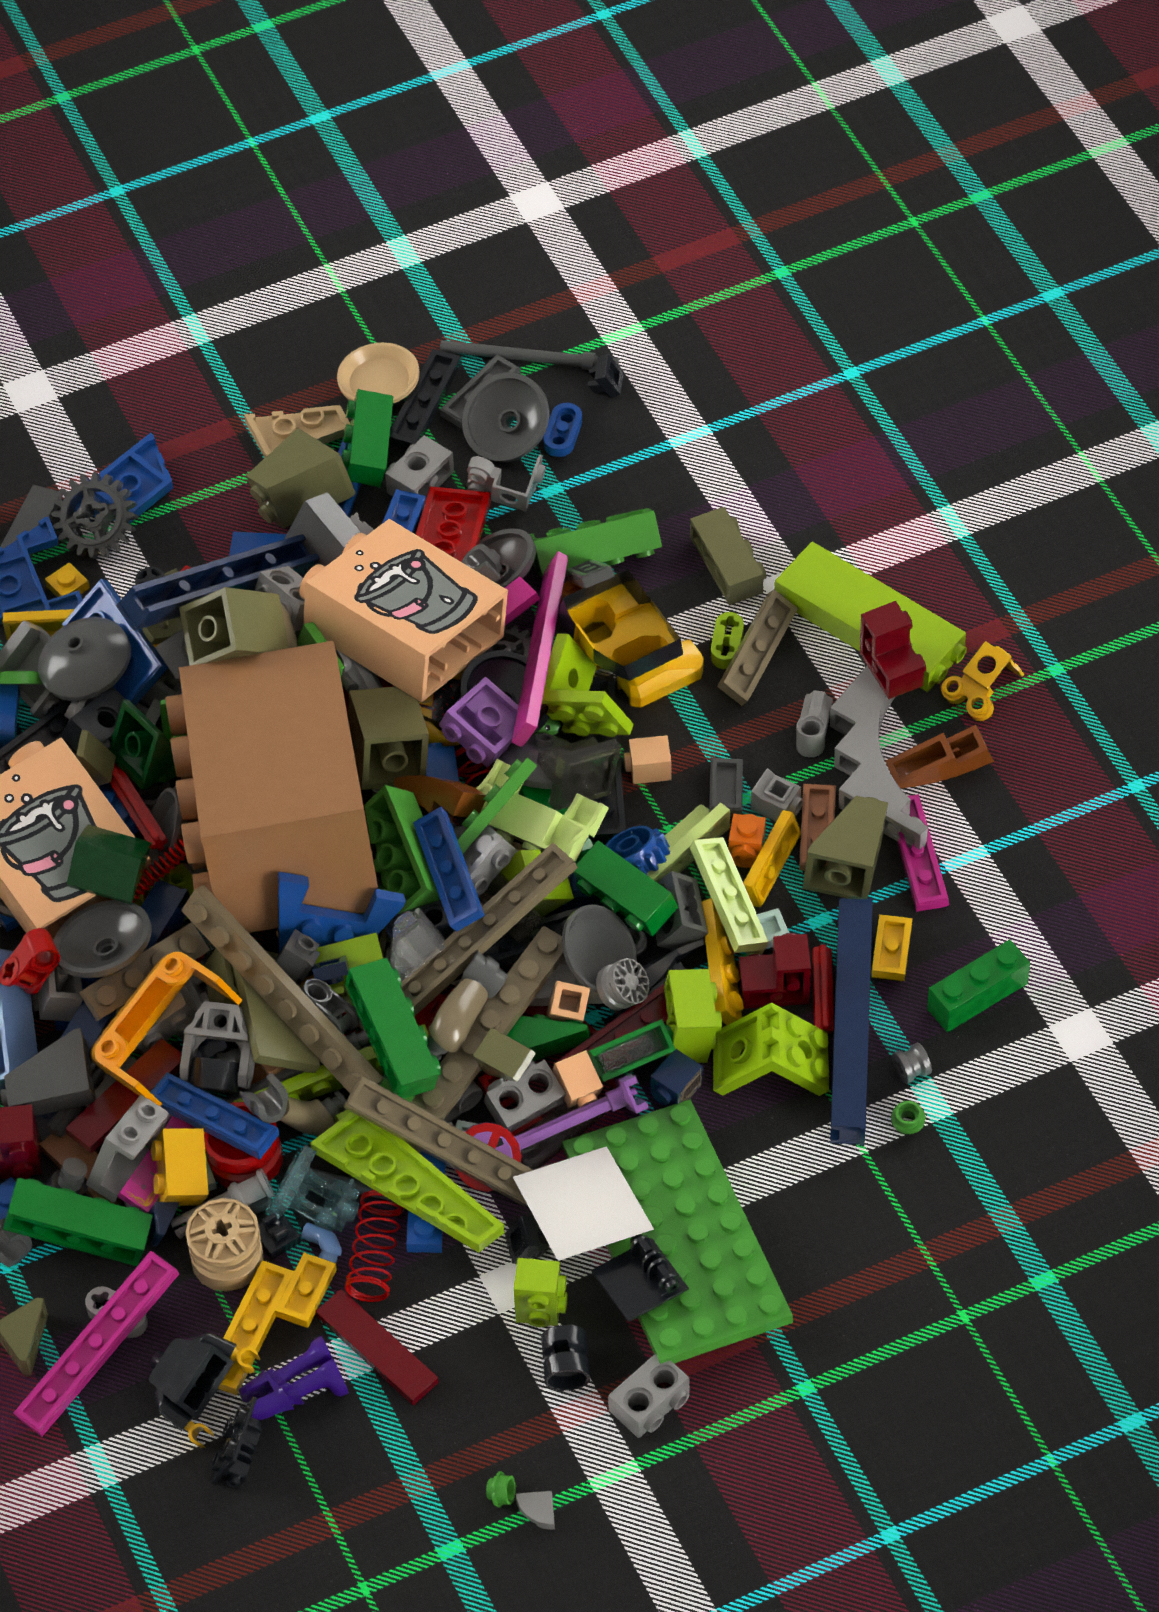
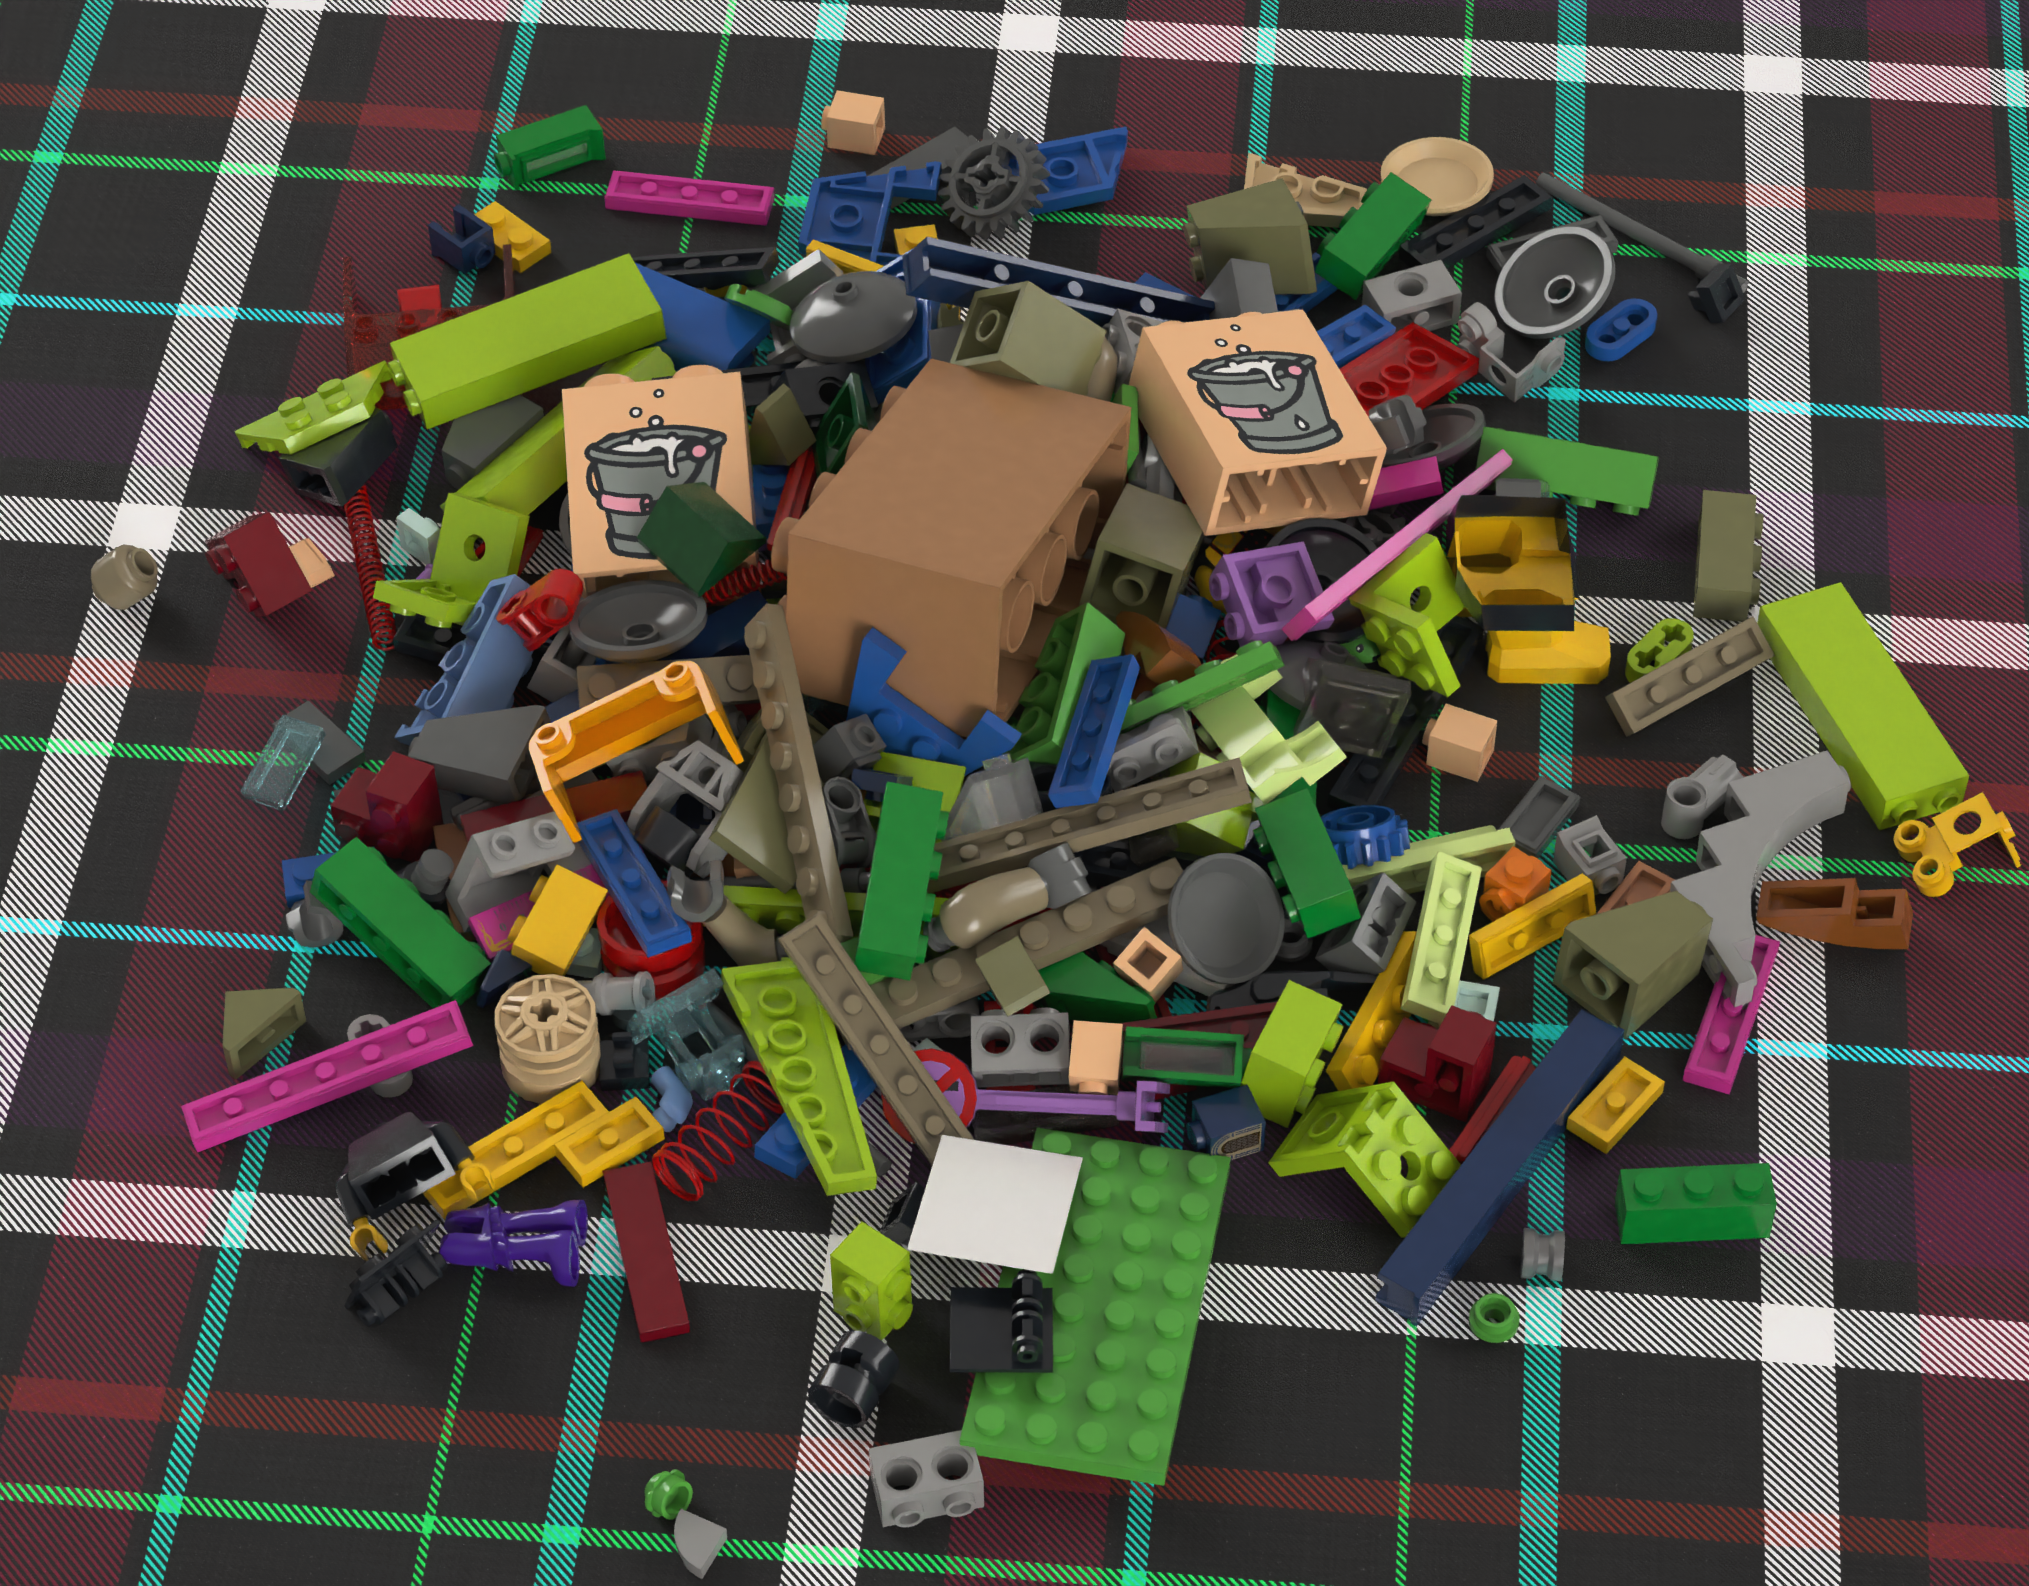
camera: 30 degrees right, 5 degrees down
(620, 985) = (1225, 974): light grey wheel -> none
(889, 651) = (1846, 742): dark red brick -> none

